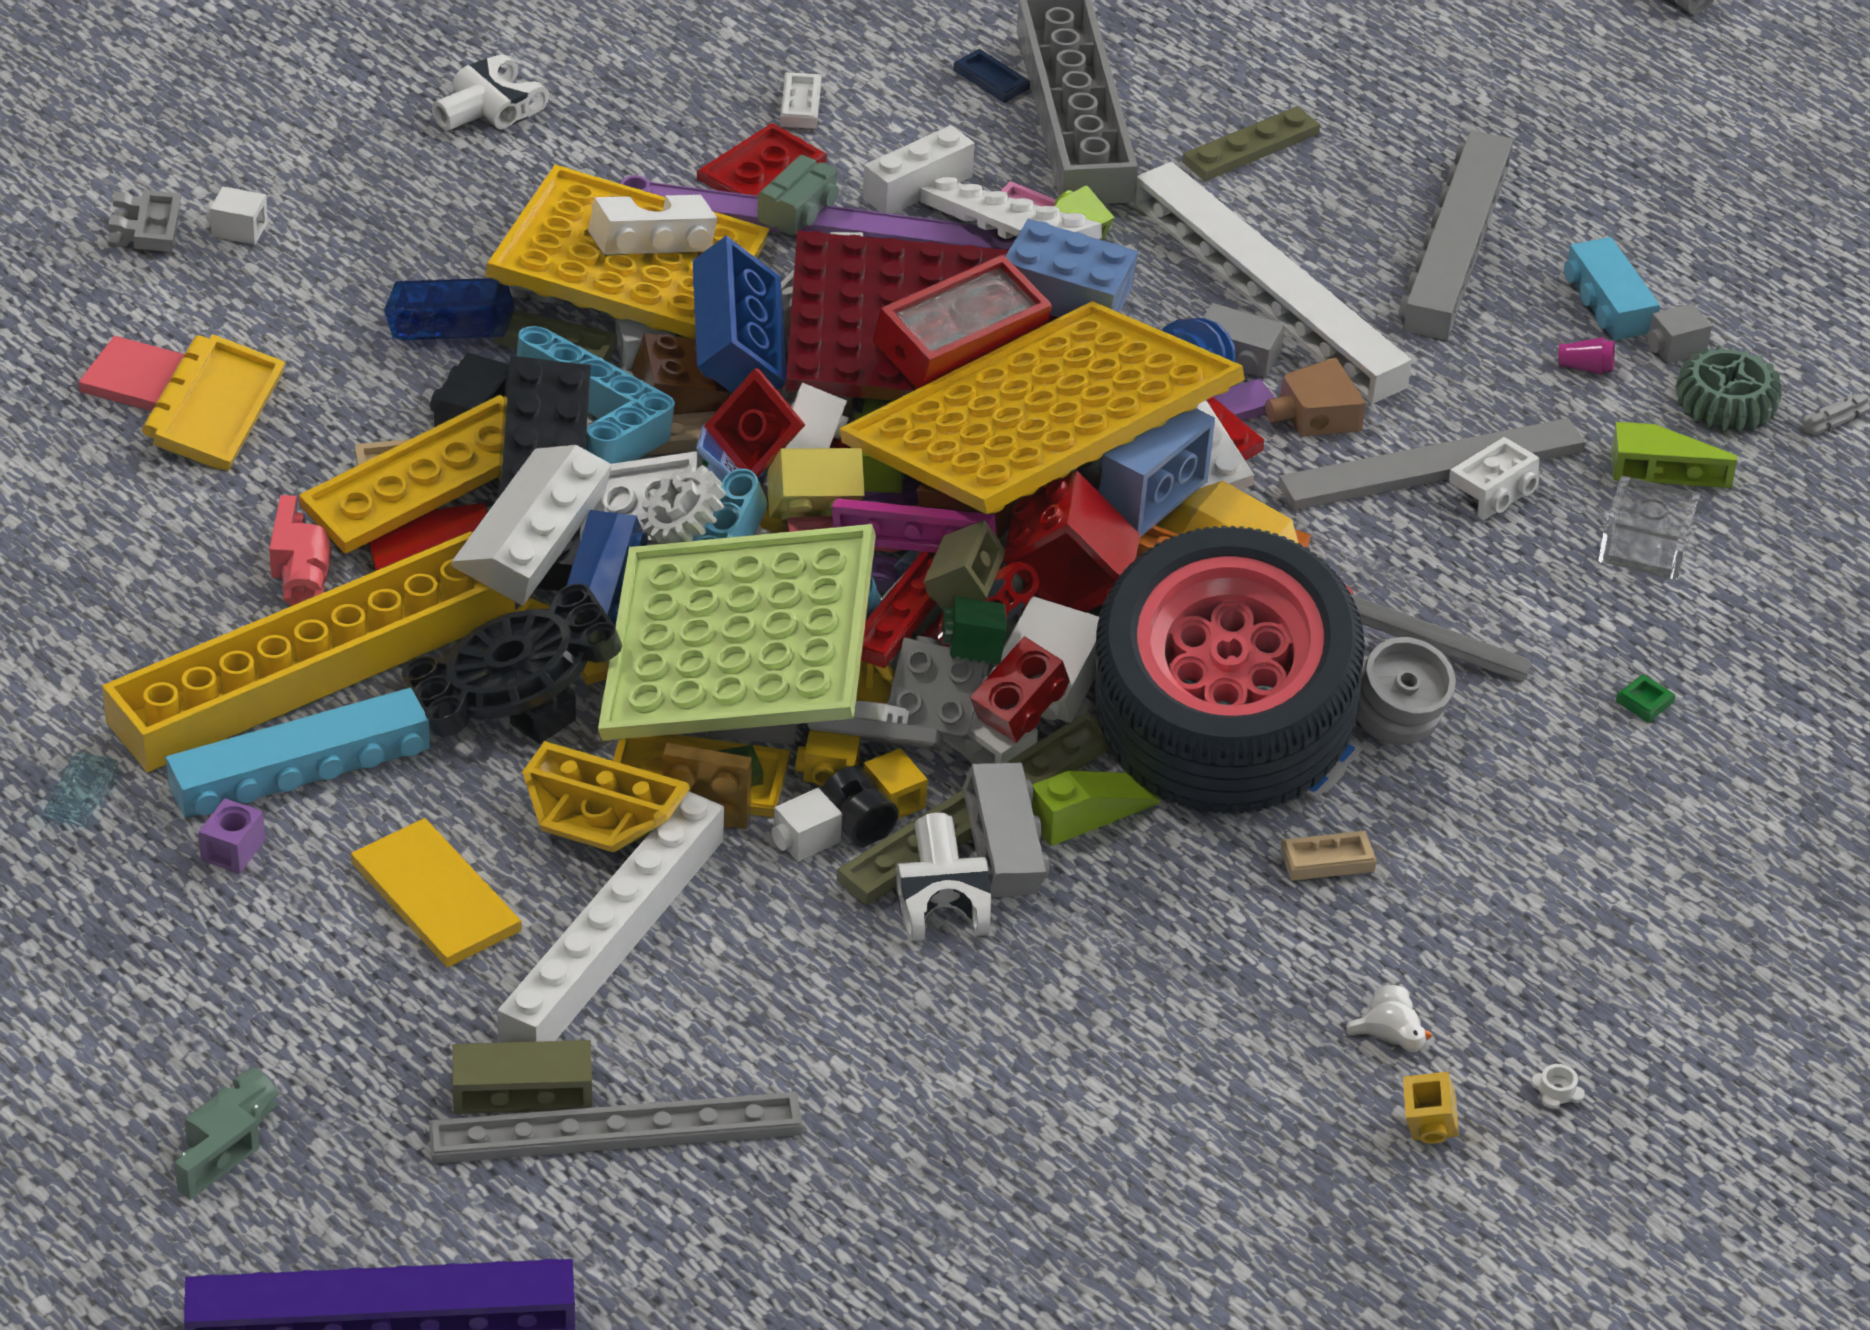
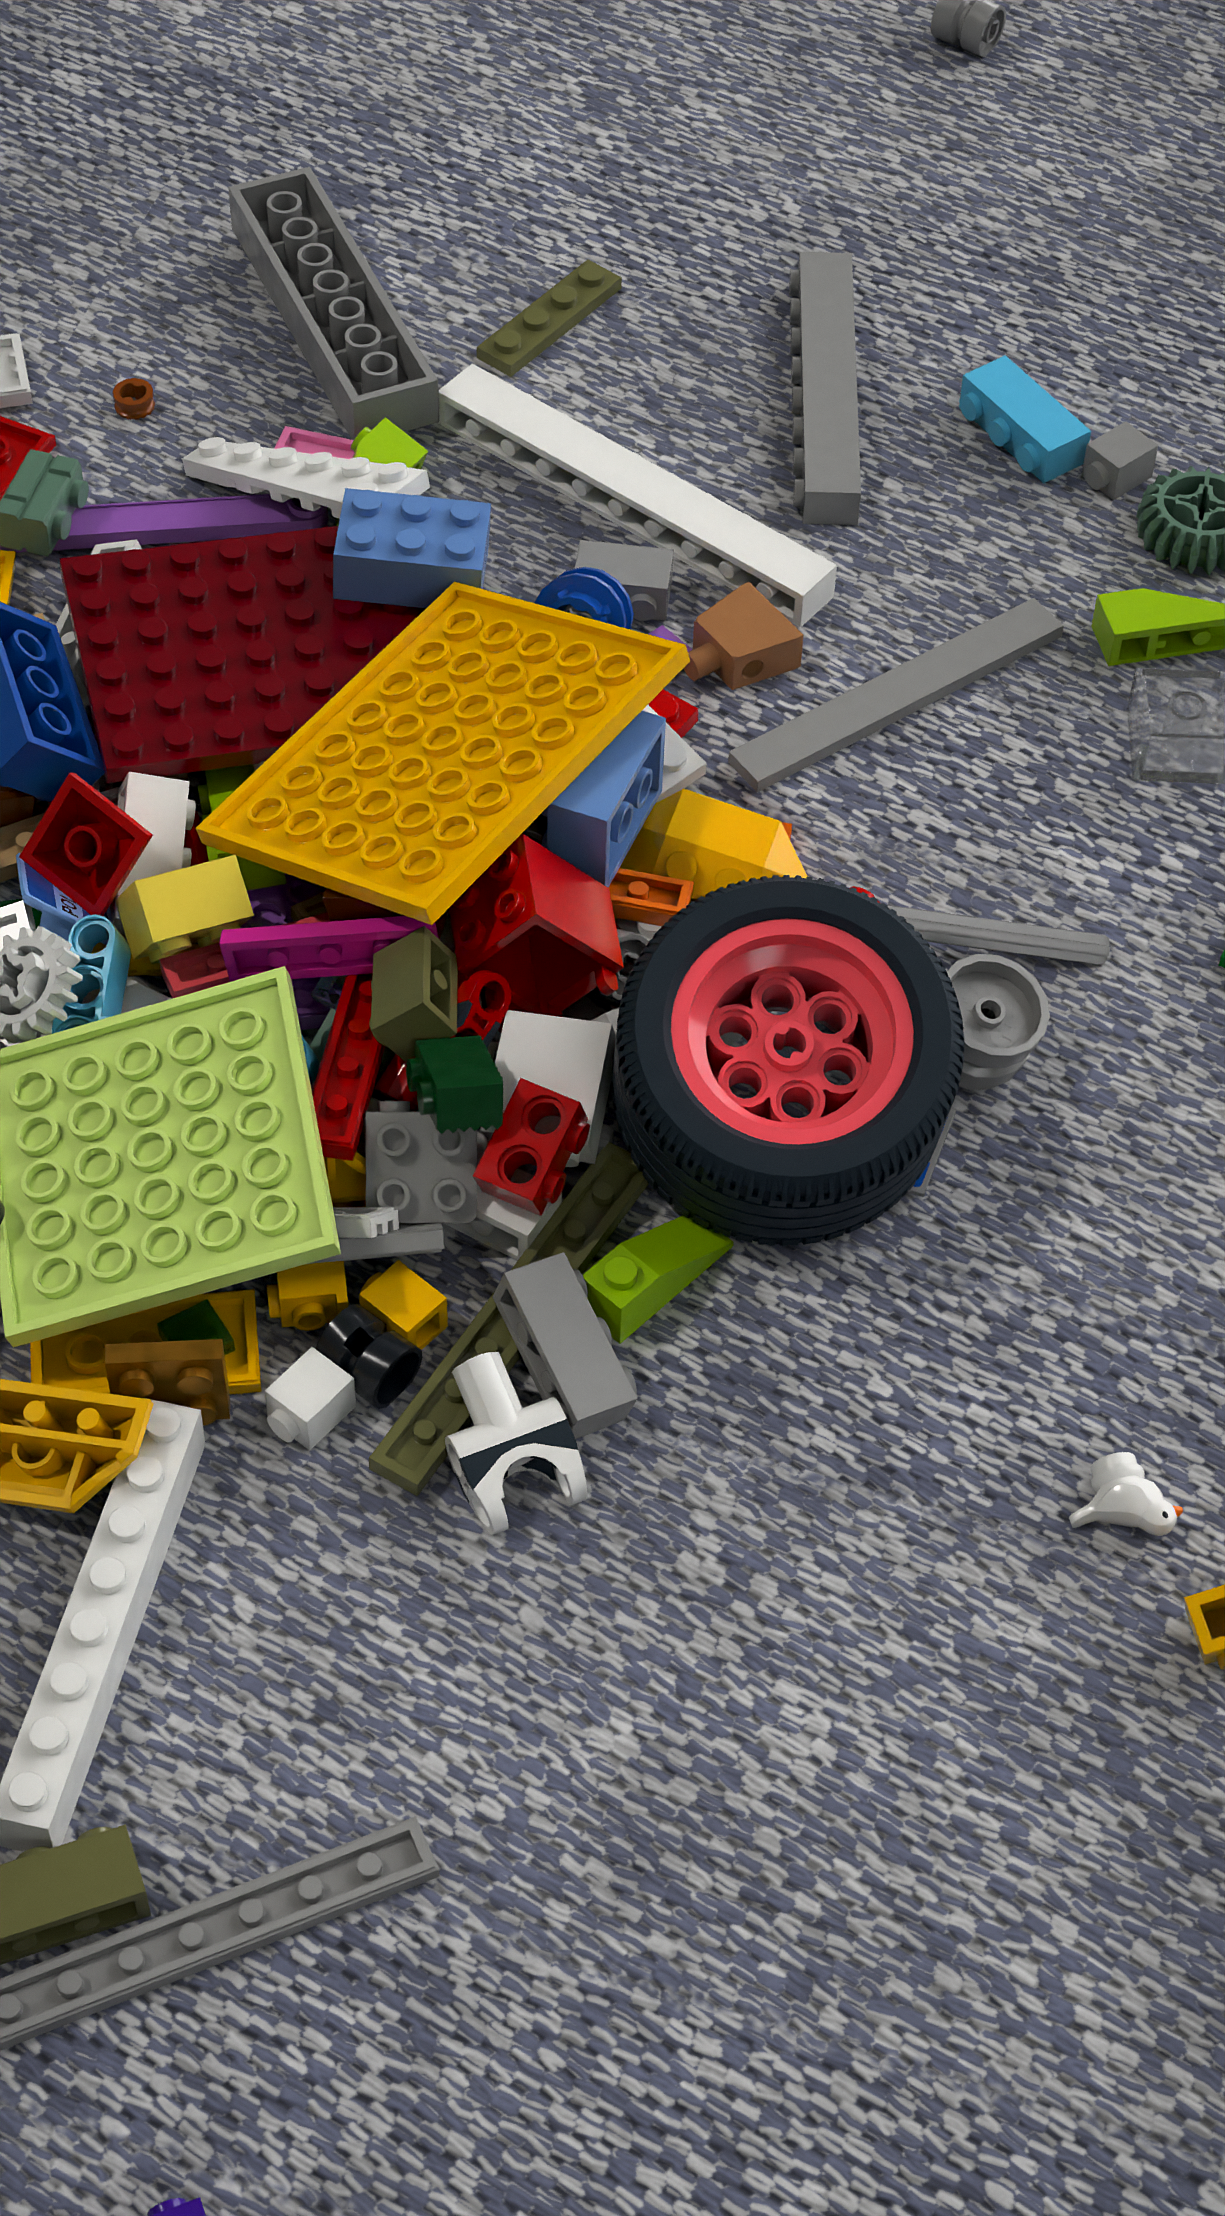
camera: 15 degrees left, 10 degrees up
(895, 131) = (130, 408): none -> dark orange bush
(897, 177) = (152, 450): white brick -> none
(959, 320) = (303, 646): brick -> none
(991, 75) = (220, 291): dark blue tile -> none
(1328, 855) = (964, 1273): tan plate -> none
(1497, 476) = (983, 695): white bracket -> none
(1588, 355) = (1027, 511): dark pink cone -> none

